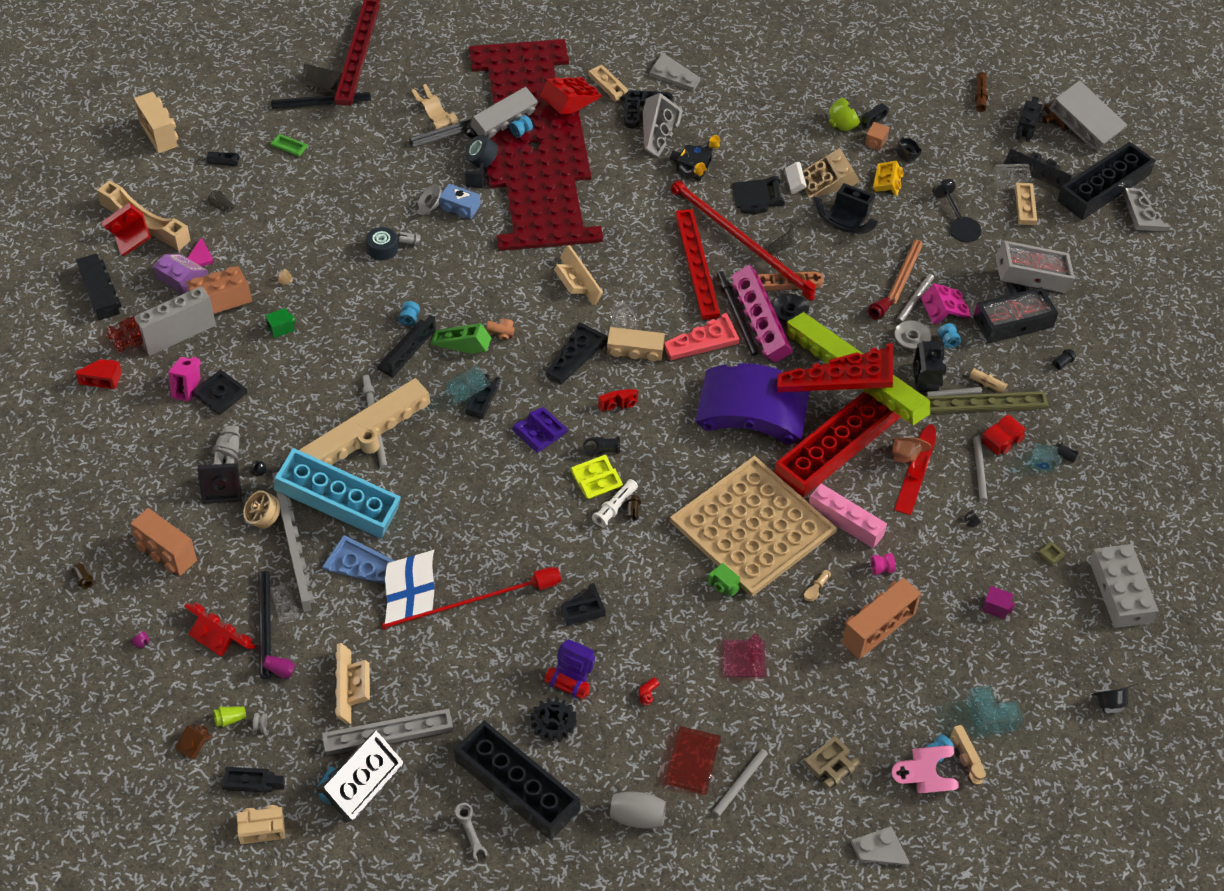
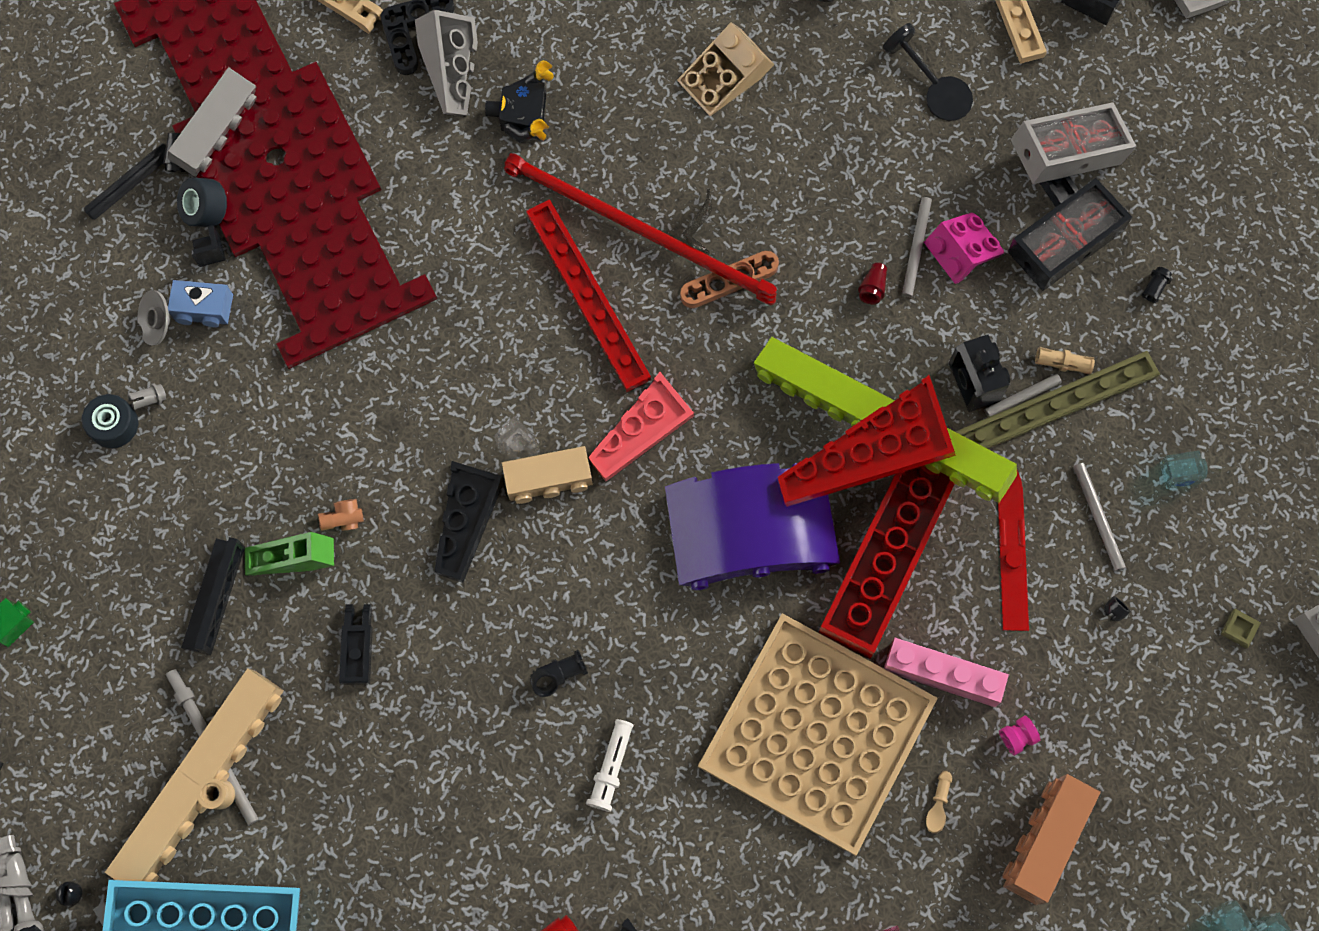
camera: 15 degrees left, 20 degrees up
(409, 313) = (196, 536): dark azure wheel -> none
(434, 110) = (105, 141): tan flag -> none
(467, 384) = (326, 636): clear light blue hinge -> none
(520, 126) = (245, 136): dark azure wheel -> none
(539, 429) = (466, 662): dark purple slope -> none
(569, 94) = (298, 50): red slope -> none
(576, 276) = (419, 382): tan bracket -> none
(596, 477) = (578, 738): neon yellow slope -> none
(622, 398) = (563, 578): red slope -> none
(633, 507) = (638, 765): dark brown pin -> none
(724, 580) = (811, 848): bright green brick -> none
(726, 288) = (643, 322): black bar -> none
(754, 195) = (628, 140): black piece -> none
(760, 311) = (708, 340): dark pink brick -> none
(790, 302) = (748, 317): black dish -> none
(795, 177) = (679, 89): white tile -> none
(849, 210) = (777, 126): black piece -> none
(888, 177) = (812, 43): yellow bracket -> none
(905, 271) = (888, 204): nougat axle -> none
(908, 449) = (991, 530): nougat piece -> none
(911, 329) = (936, 306): light grey dish -> none
(948, 334) = (987, 300): dark azure wheel -> none
(998, 602) = (1197, 744): magenta brick -> none
(1003, 435) = (1115, 450): red brick -> none
(1066, 452) = (1208, 446): black pin -> none

